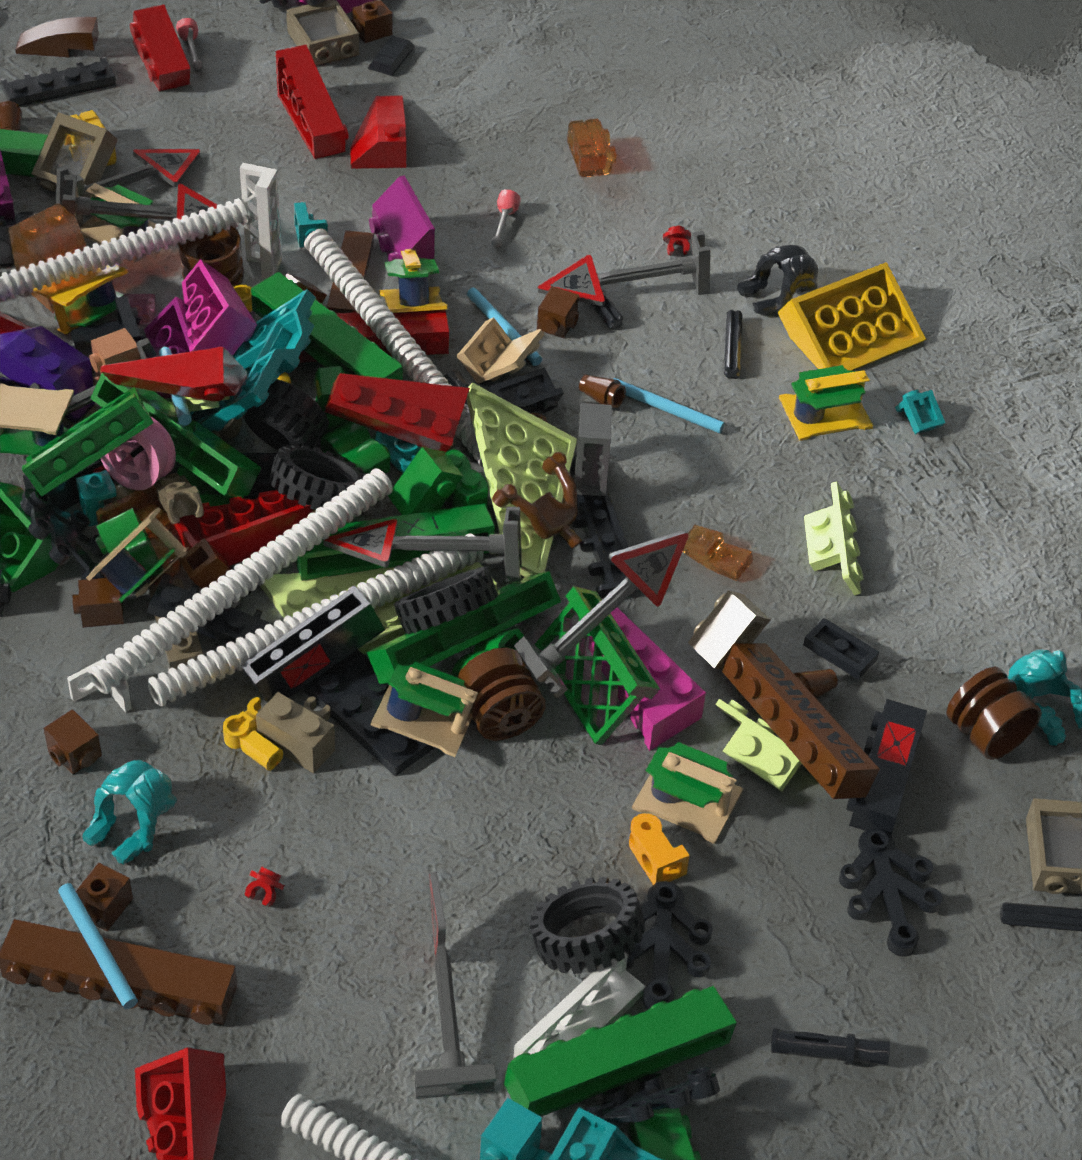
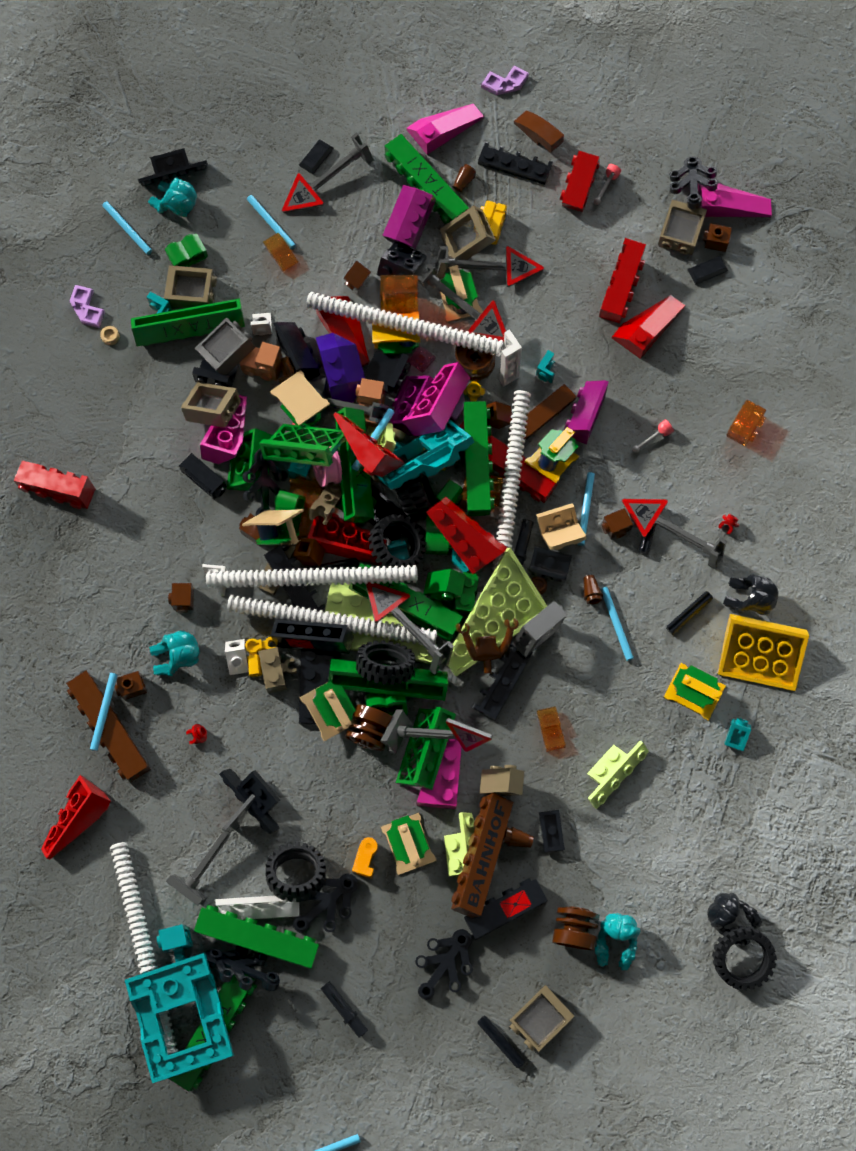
camera: 50 degrees right, 25 degrees up
(229, 757) = (236, 657): none -> white bracket
(412, 892) = (264, 799): none -> black bracket

